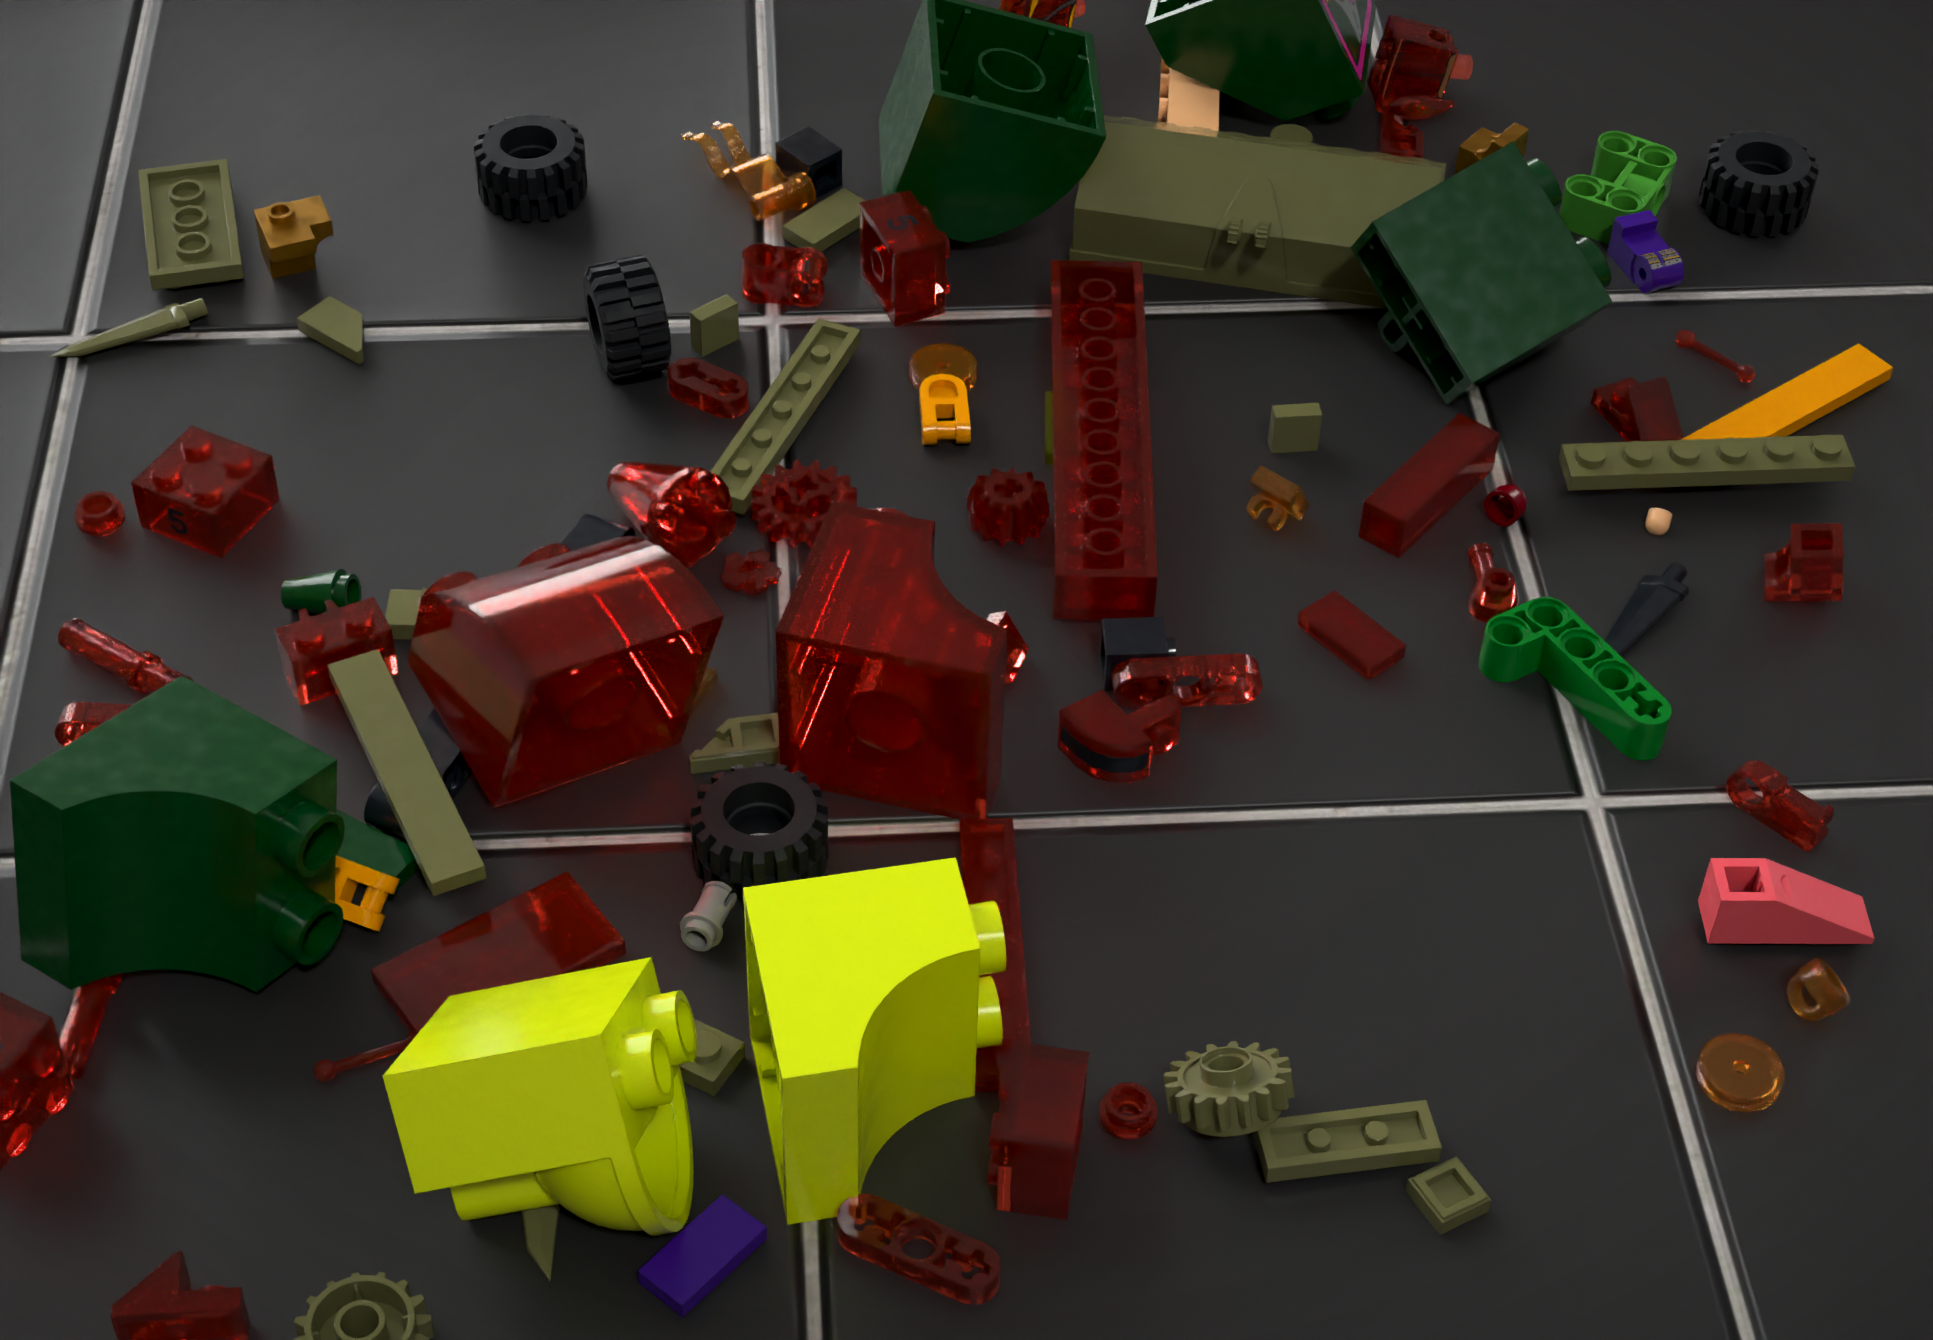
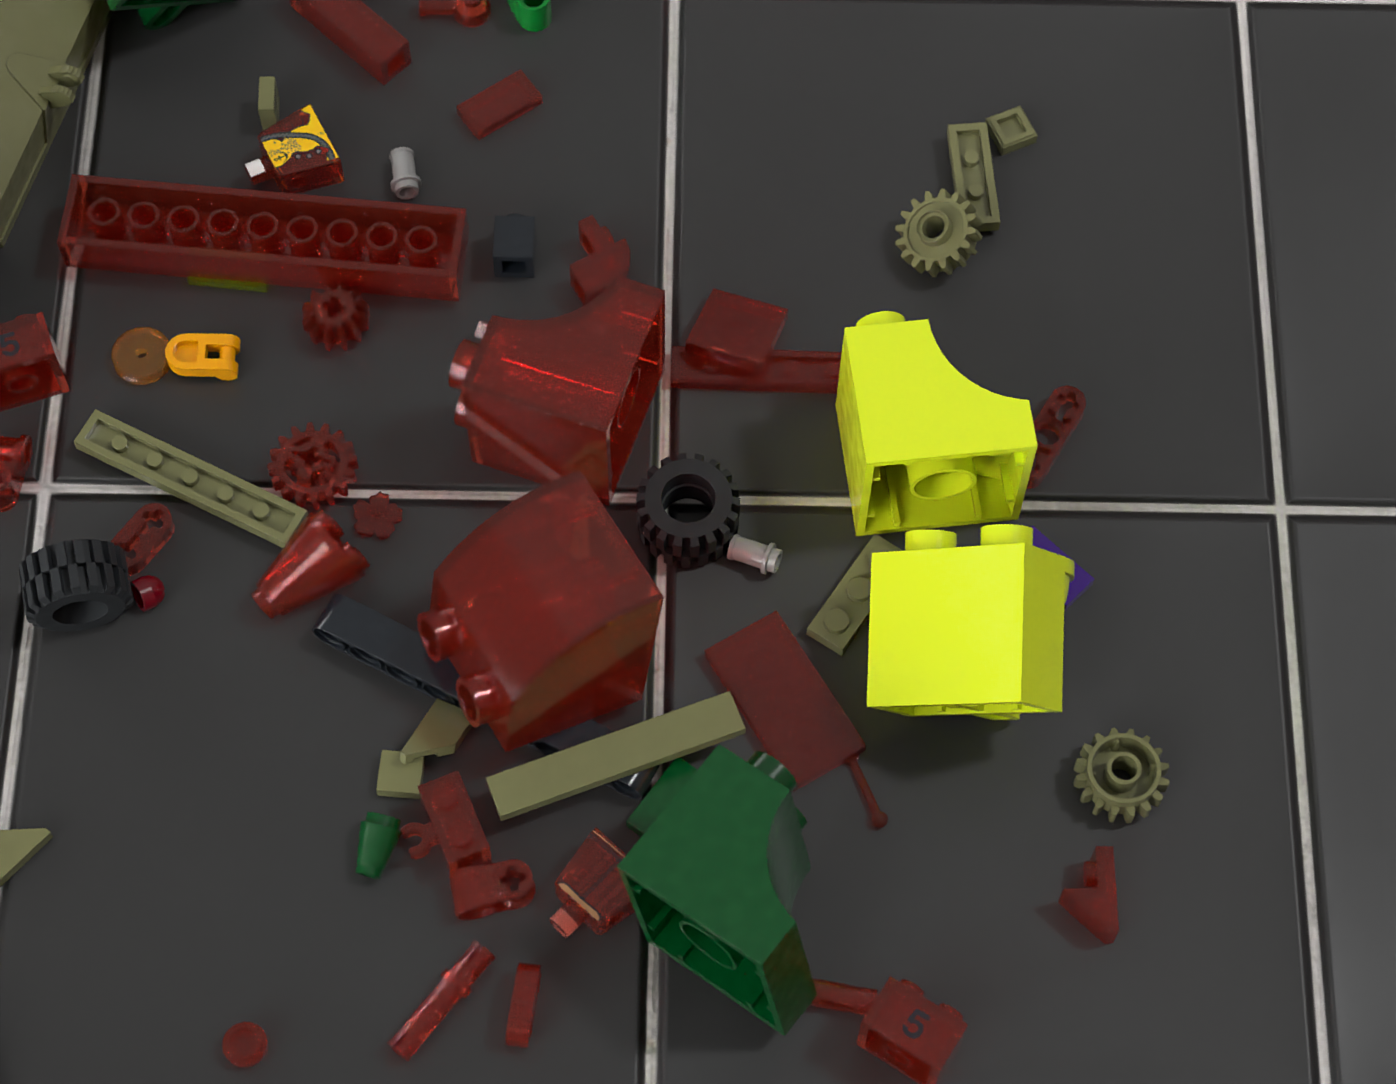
camera: 85 degrees left, 20 degrees up
(206, 491) = (237, 946): clear red brick -> none
(257, 685) = (486, 889): none -> clear red piece
(639, 394) = (147, 592): none -> dark red hinge
(714, 325) = (62, 521): olive tile -> none
(1038, 1130) = (982, 340): clear red brick -> none
(1041, 877) = (736, 330): none -> clear red tile
(1132, 1099) = (941, 292): clear red plate -> none
(1221, 667) = (545, 215): clear red beam -> none
(1224, 553) = (405, 181): none -> light grey pin
(1225, 453) = (296, 155): none -> torso
(1278, 494) = (348, 126): clear orange tile -> none

